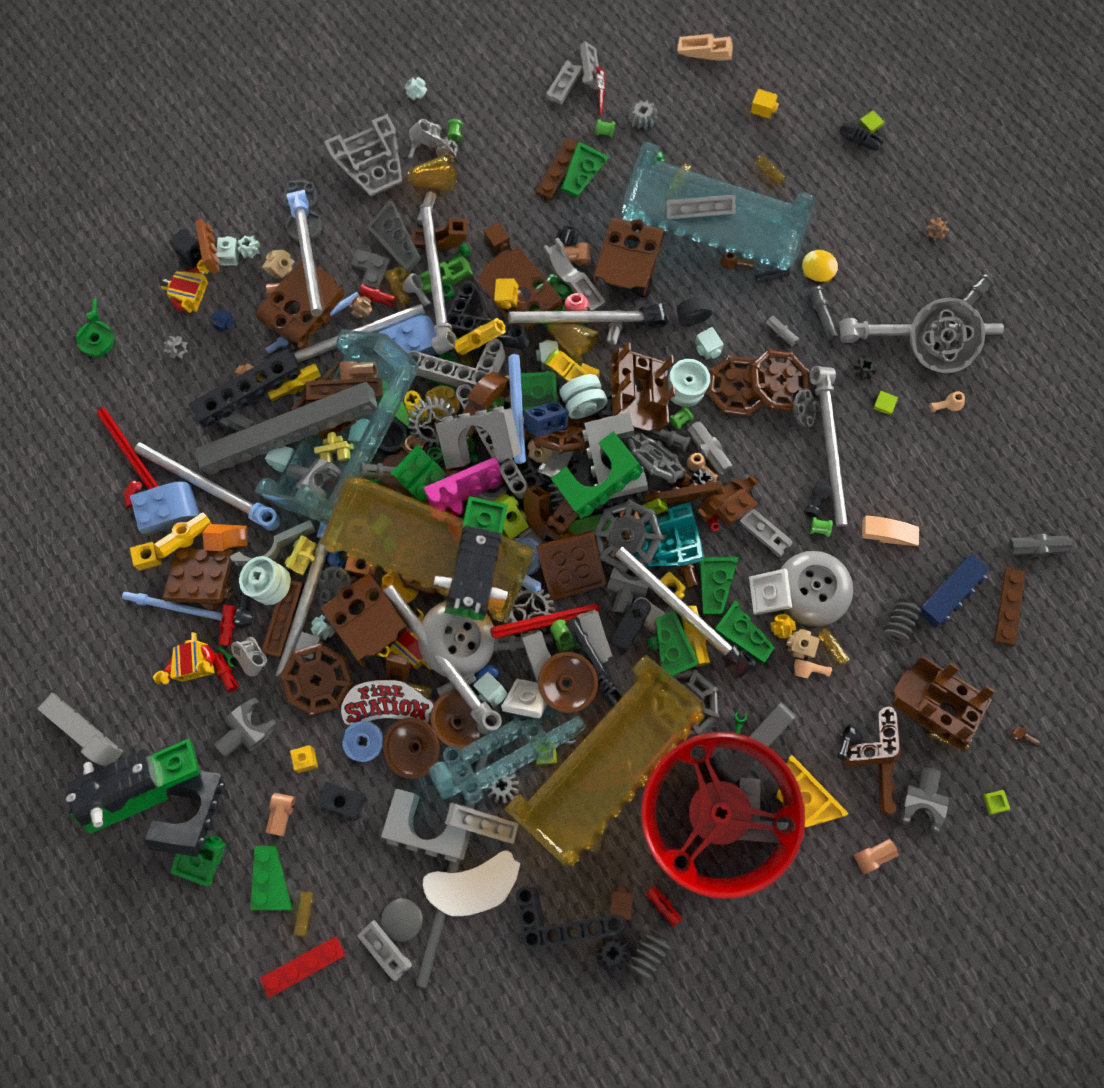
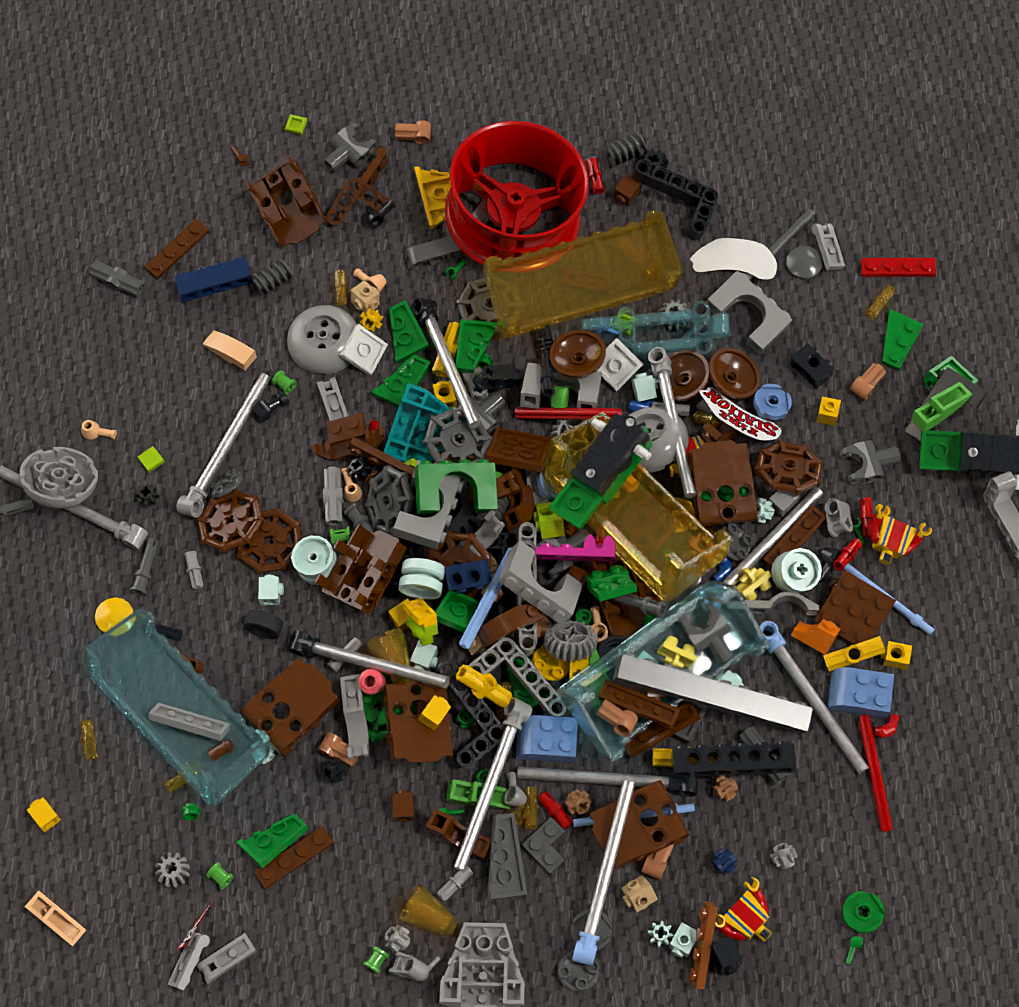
camera: 150 degrees left, 5 degrees down
(185, 801) = (941, 406): none -> bright green slope
(481, 823) = (706, 285): light grey plate -> none
(659, 201) = (221, 749): none -> reddish brown pin

